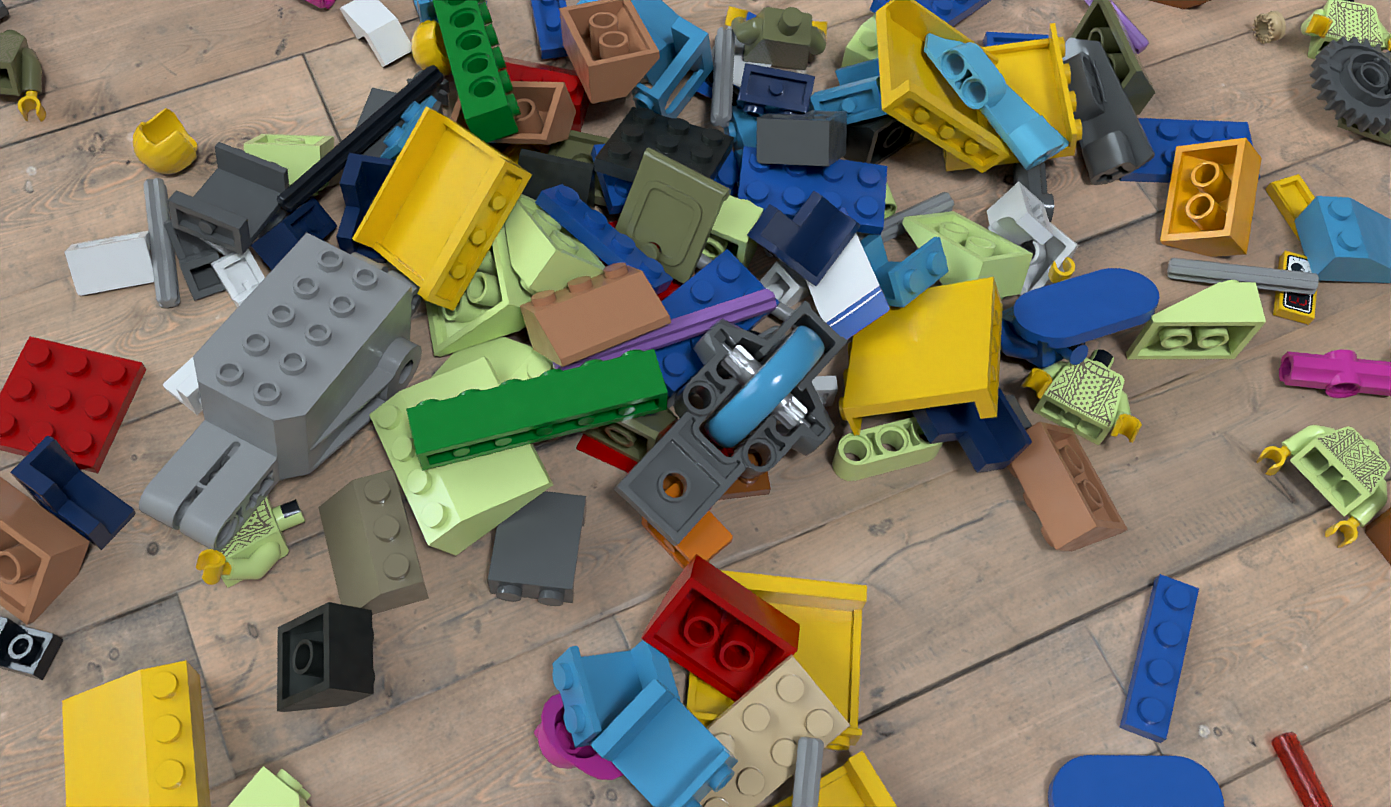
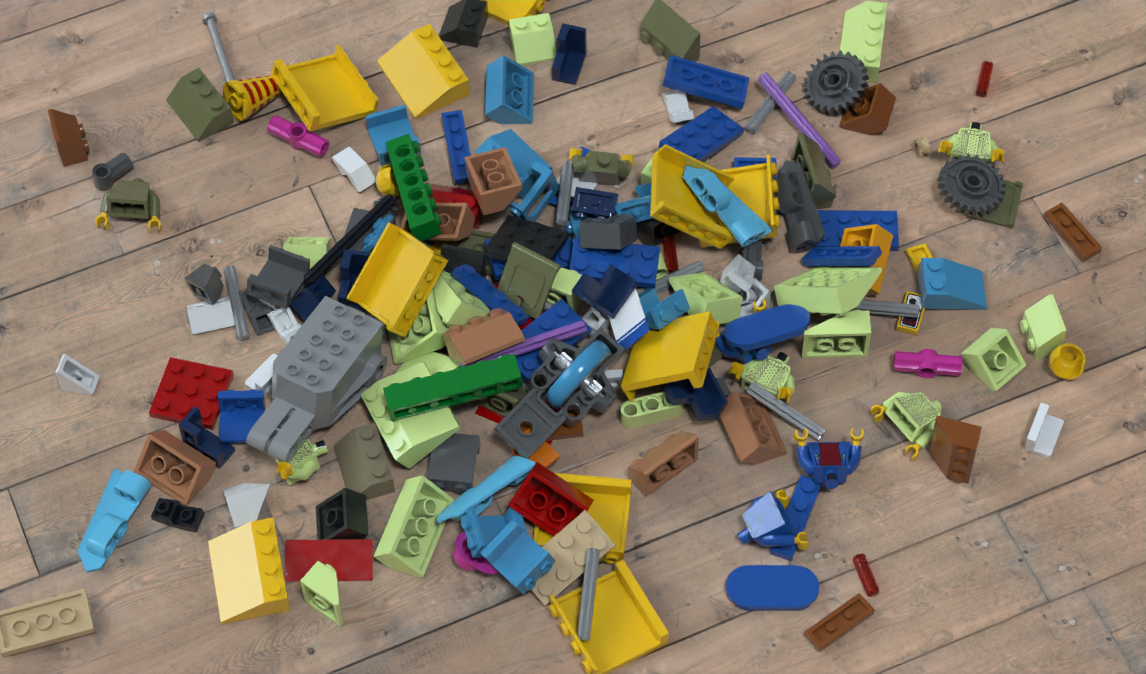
camera: 10 degrees right, 5 degrees down
(106, 206) = (205, 283): none -> dark grey slope
(138, 622) = (245, 502): none -> white slope
(141, 444) = (239, 413): none -> blue bracket
(164, 143) = (234, 245): yellow hair -> none
(304, 739) = (348, 557): none -> red sticker
(462, 676) = (413, 527): none -> yellowish green slope
(586, 617) = (480, 497): none -> medium azure panel
(897, 179) = (670, 254): none -> clear red axle
(919, 547) = (664, 462): none -> nougat slope
(1121, 455) = (785, 411): none -> light grey axle
(1124, 674) = (770, 524): none -> torso
(1178, 244) = (828, 289): none -> yellowish green slope
(1189, 190) = (842, 256): none -> blue plate
(1211, 551) = (829, 460): none -> blue torso

